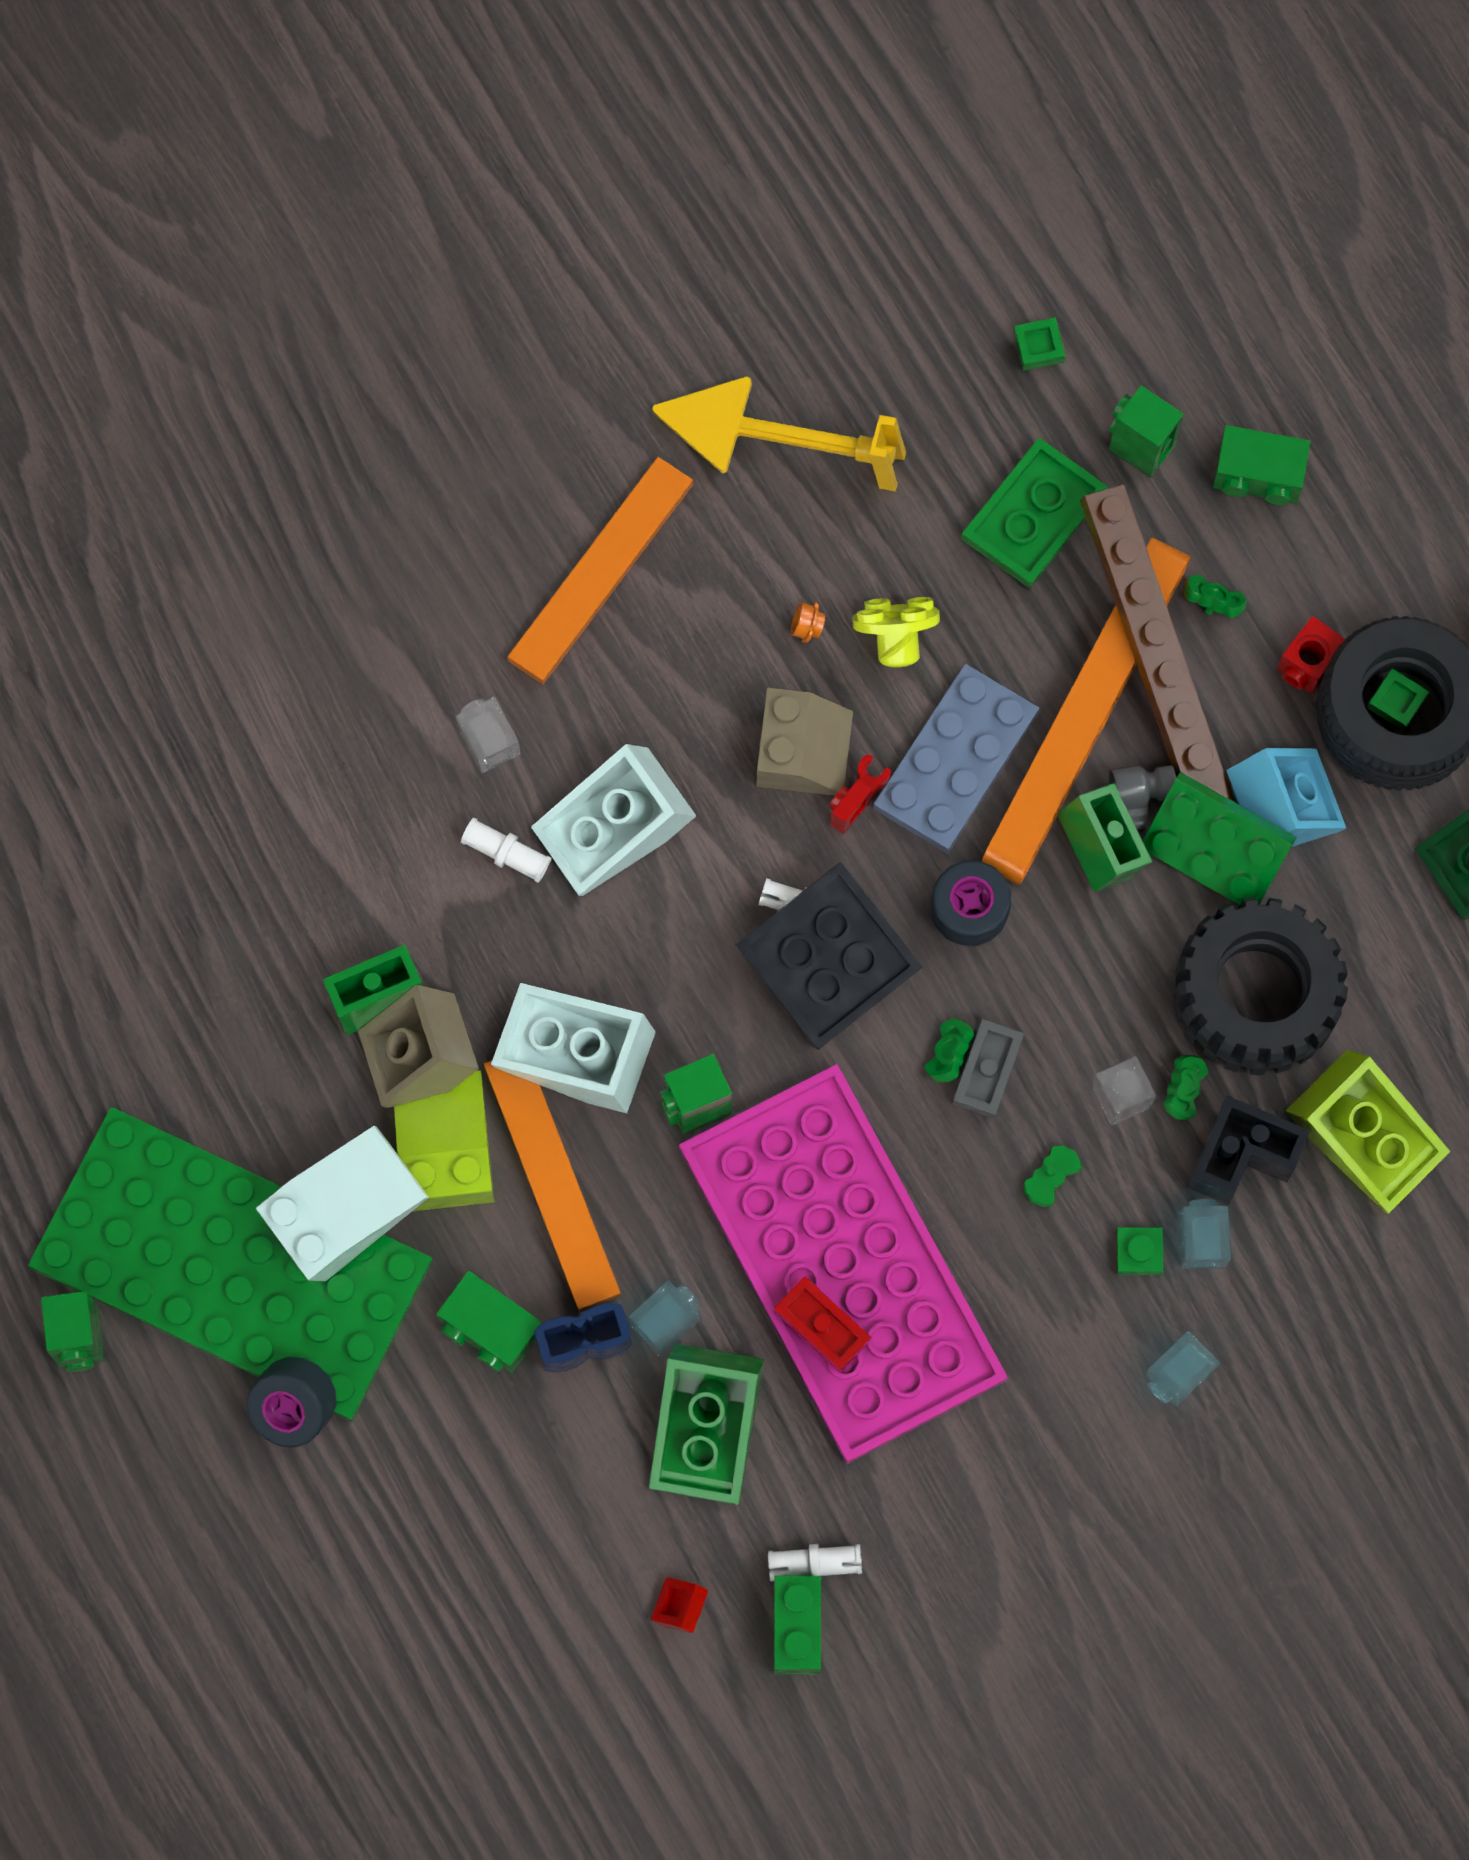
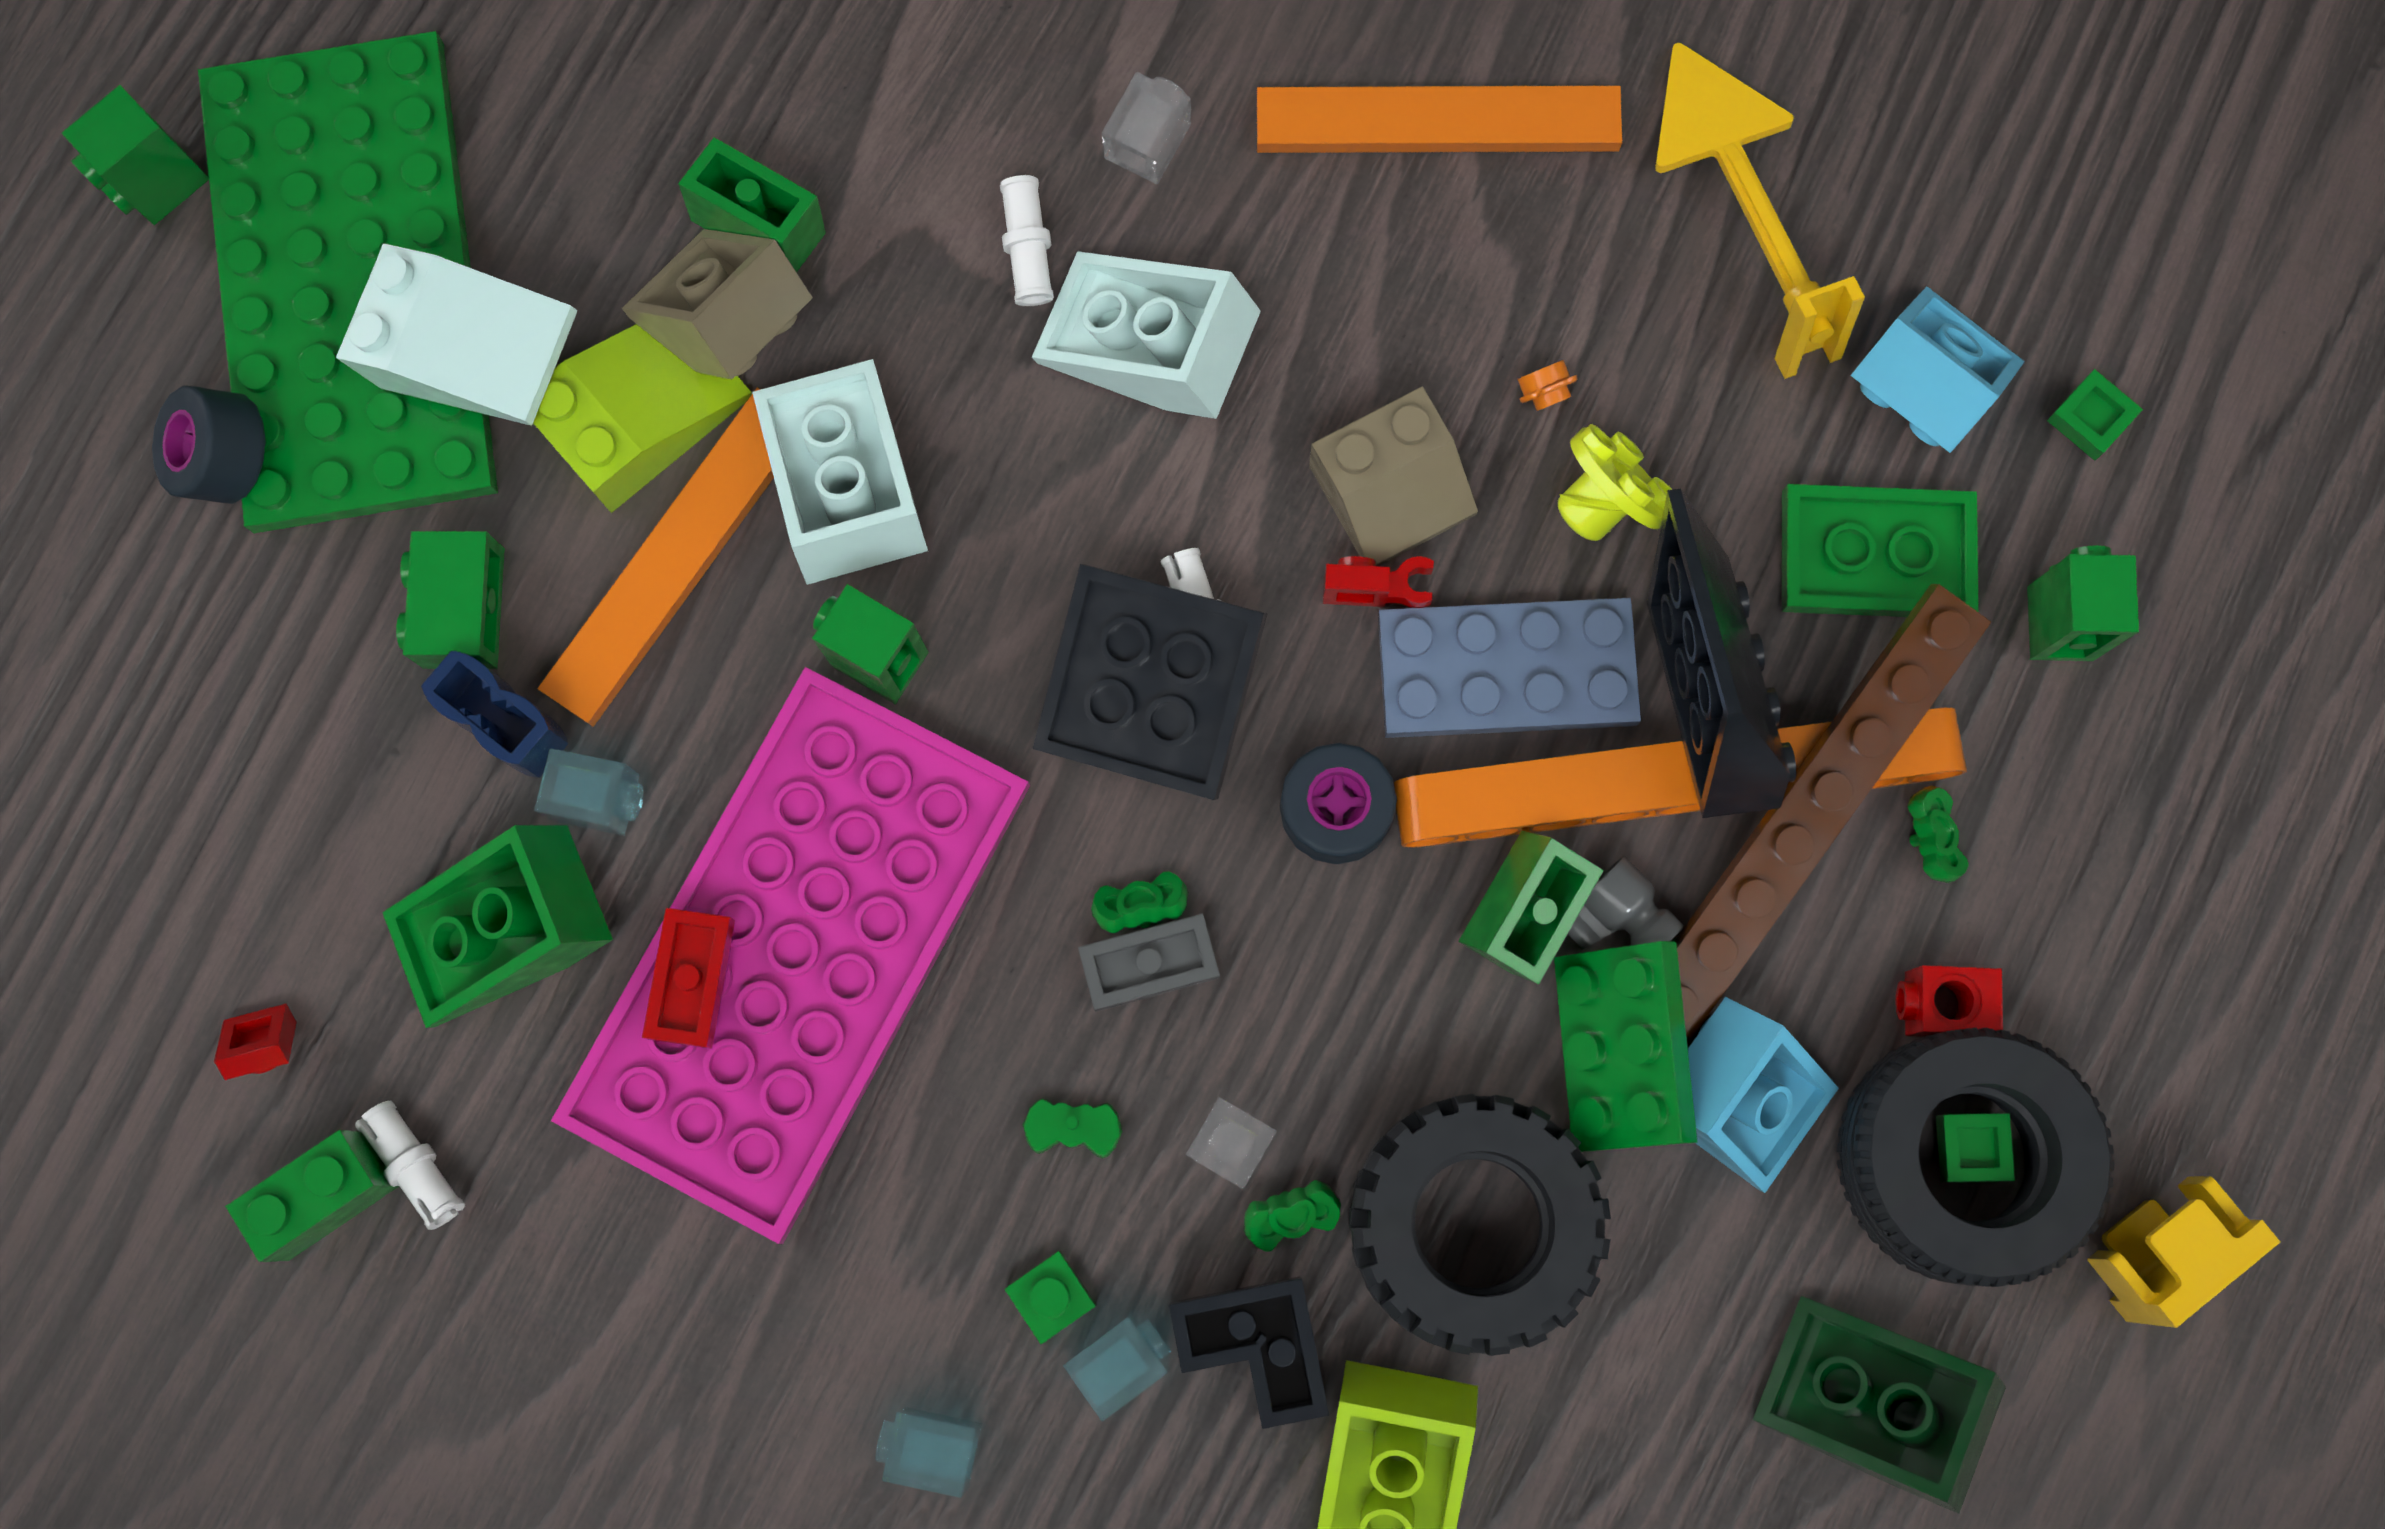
camera: 60 degrees right, 5 degrees up
(953, 407) = (1937, 370): none -> medium azure slope
(1045, 647) = (1715, 670): none -> black slope
(1261, 465) = (2148, 777): green brick -> none

